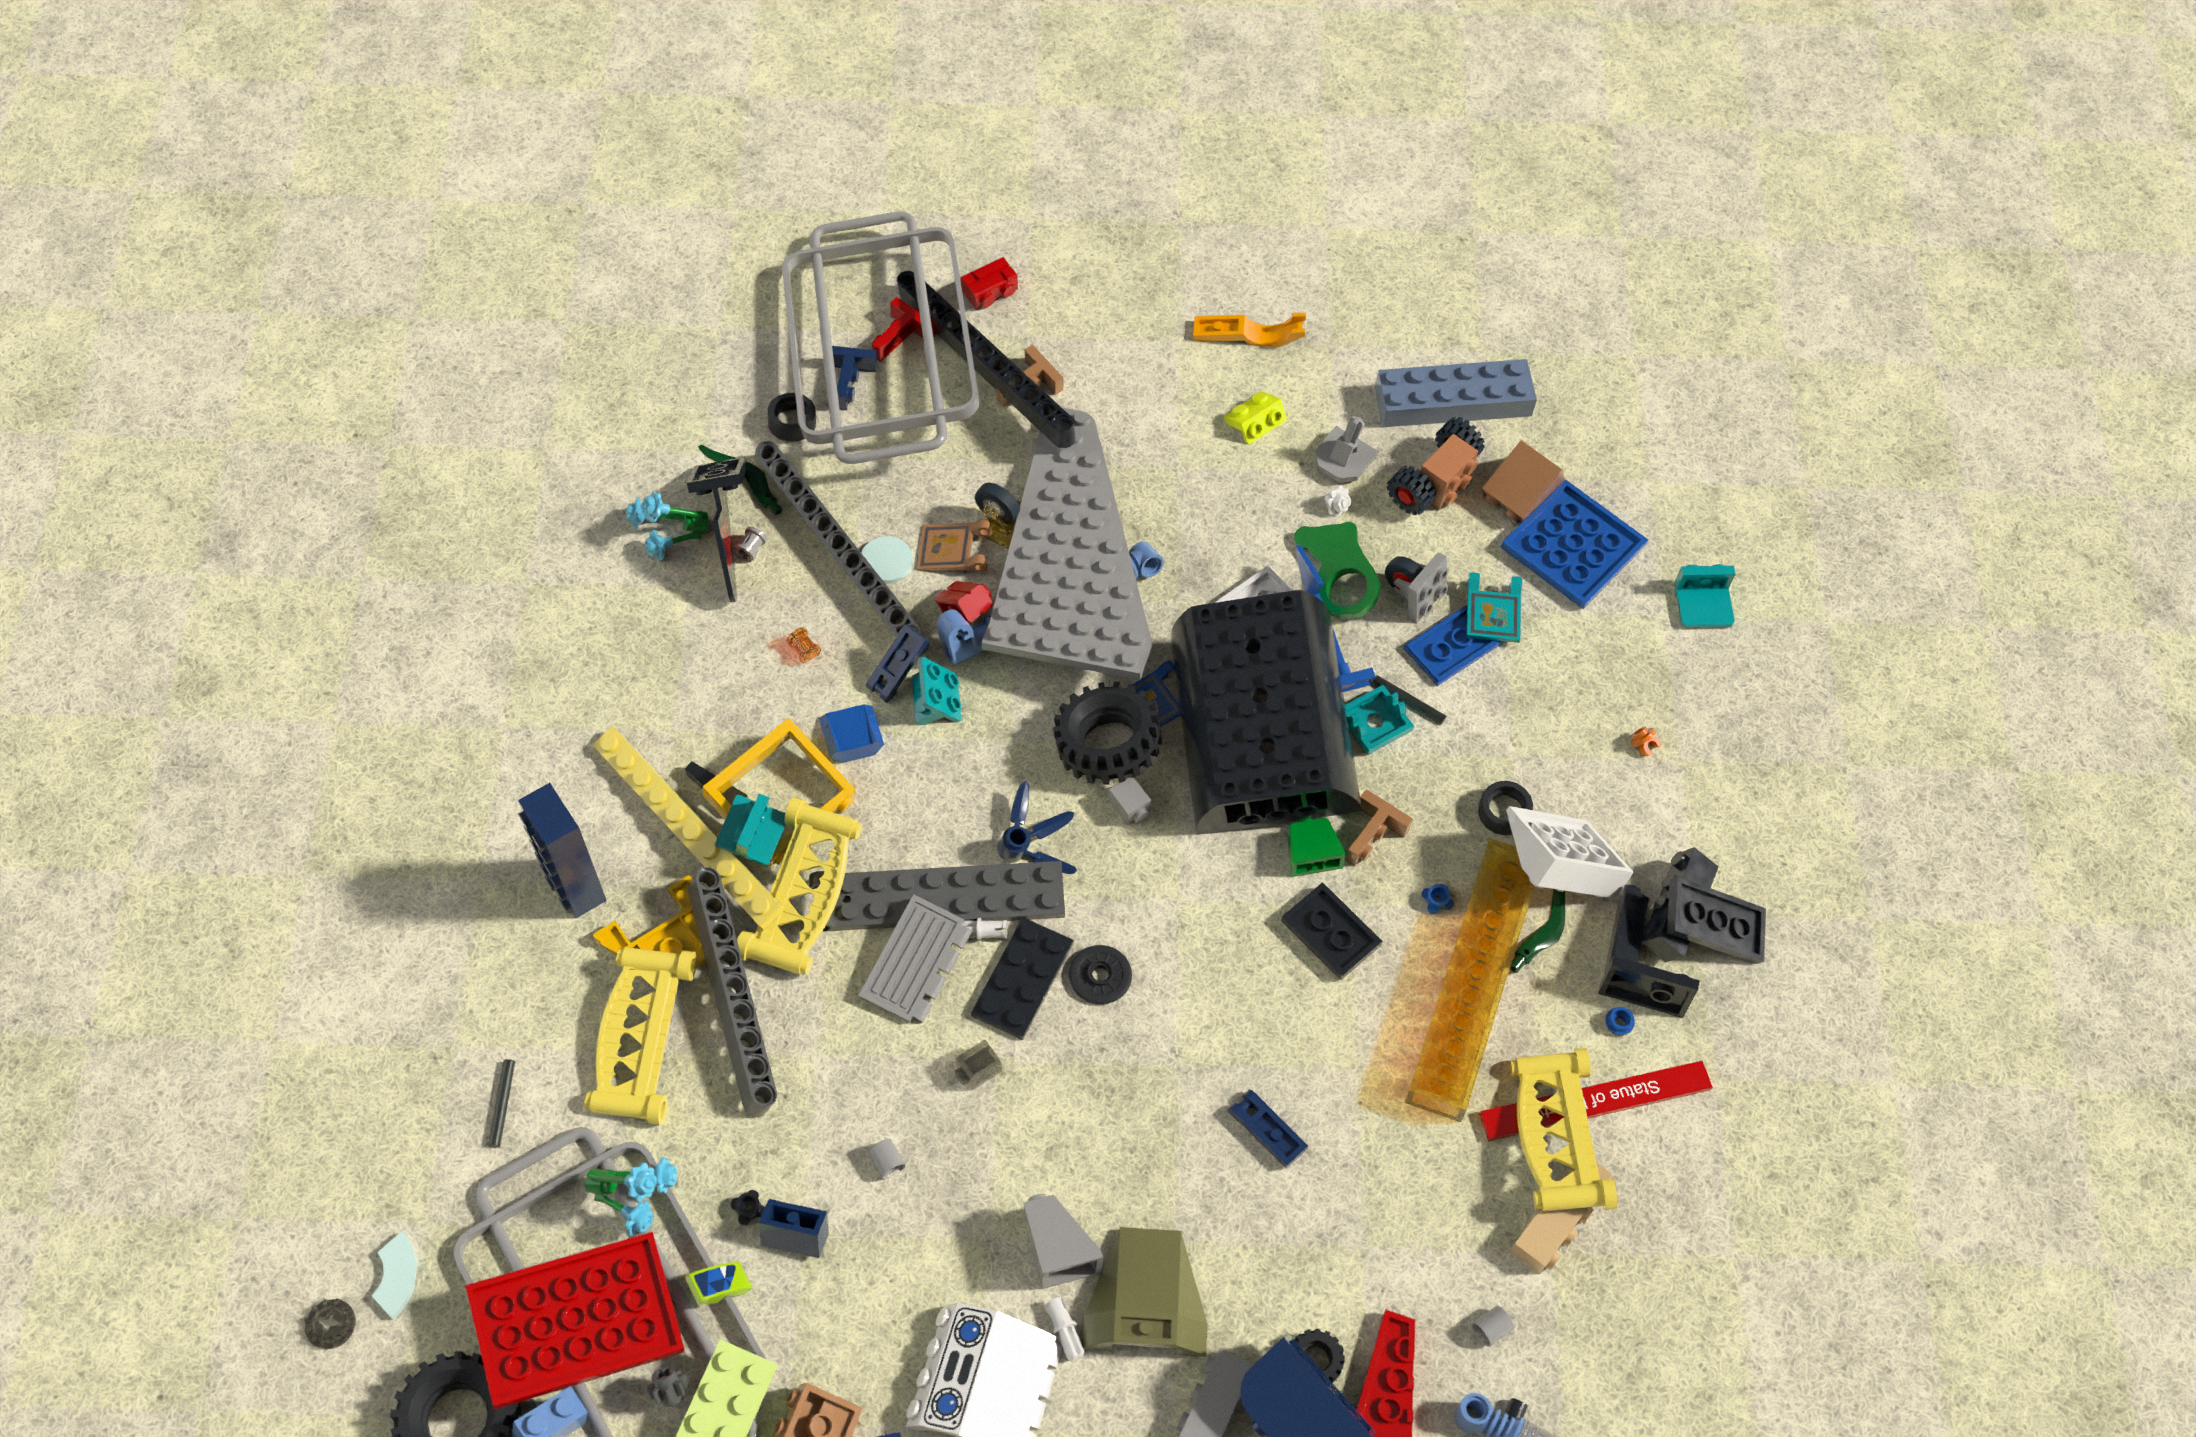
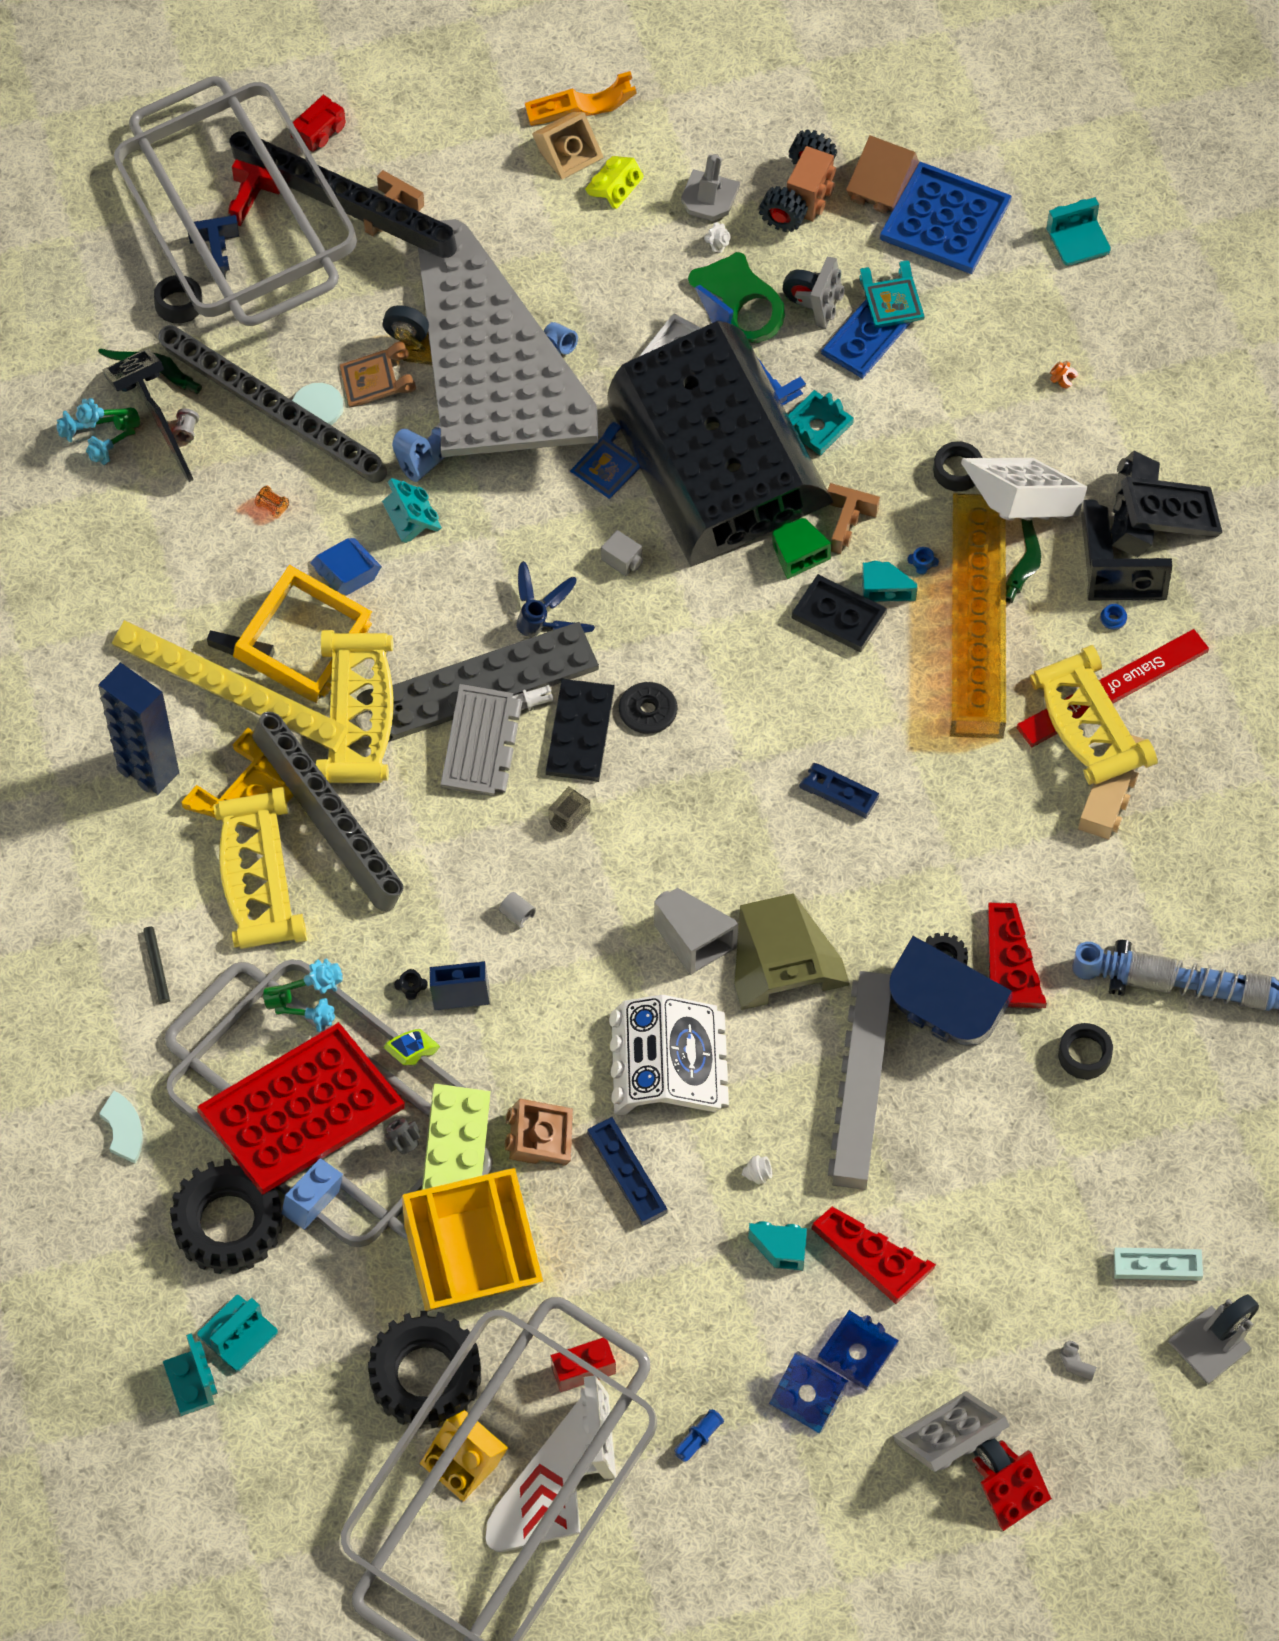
camera: 15 degrees left, 0 degrees up
(335, 1335) = (91, 1188): clear smoke gear -> none
(752, 829) = (294, 668): teal bracket -> none
(897, 662) = (366, 492): dark blue plate -> none
(966, 598) = (409, 415): red brick -> none
(1065, 1328) = (721, 997): white axle -> none
(1099, 708) = (577, 475): black tyre -> none
(1222, 368) = (568, 144): none -> tan slope
(1390, 913) = (886, 583): none -> teal slope
(1411, 701) = (844, 397): pearl dark grey bar -> none
(1456, 391) = (793, 106): sand blue brick -> none
(1493, 1325) = (1083, 889): light grey beam -> none

